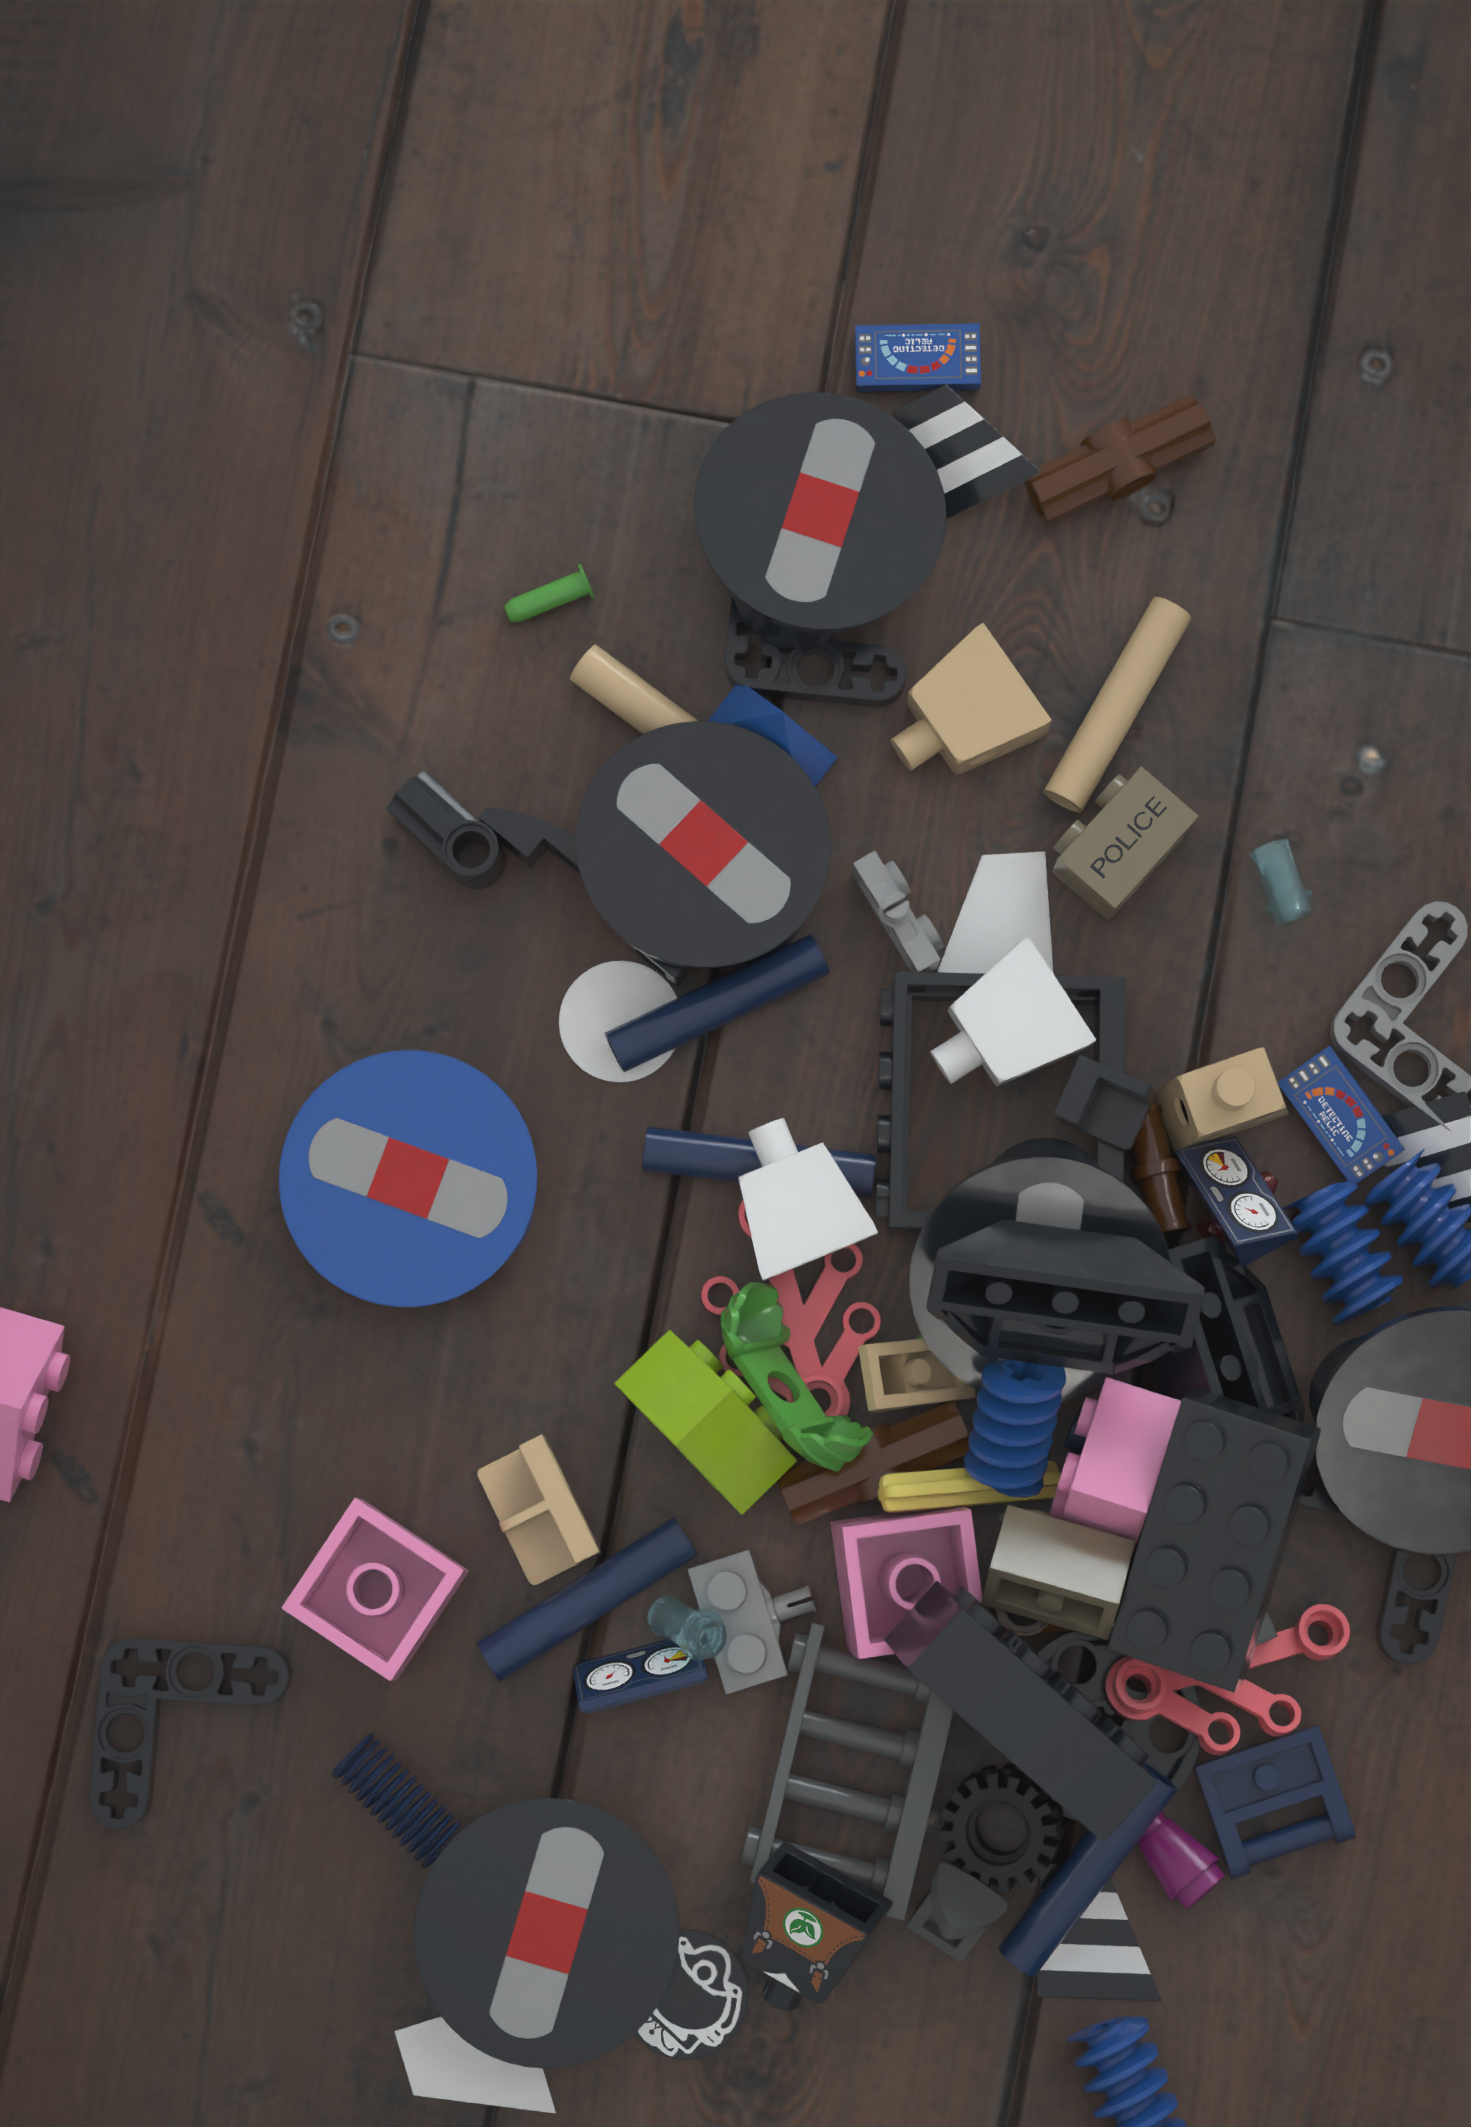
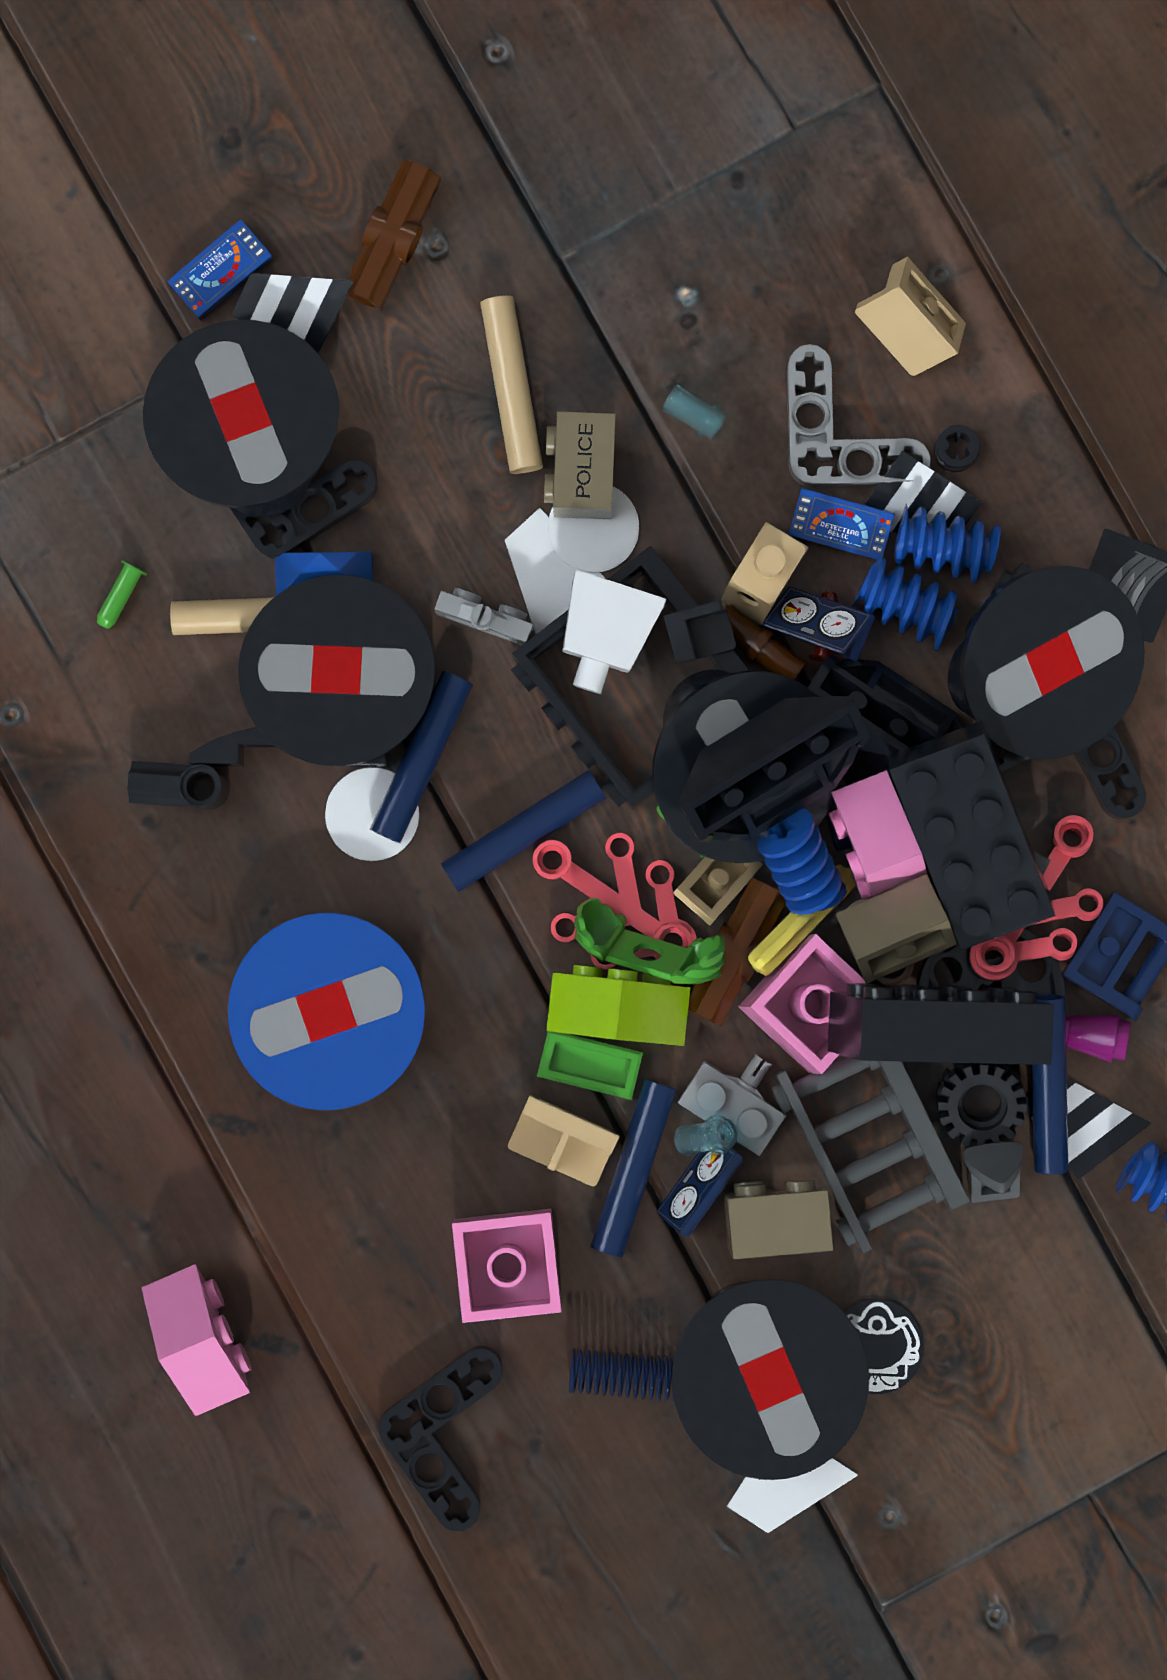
camera: 40 degrees left, 5 degrees up
(630, 1456) = (590, 1064): none -> bright green tile
(689, 1773) = (777, 1222): none -> dark tan brick
(798, 1203) = (568, 837): white torso -> none
(807, 1926) = (917, 1250): torso -> none
(970, 708) = (426, 458): tan torso -> none
(1073, 933) = (596, 543): none -> white sticker

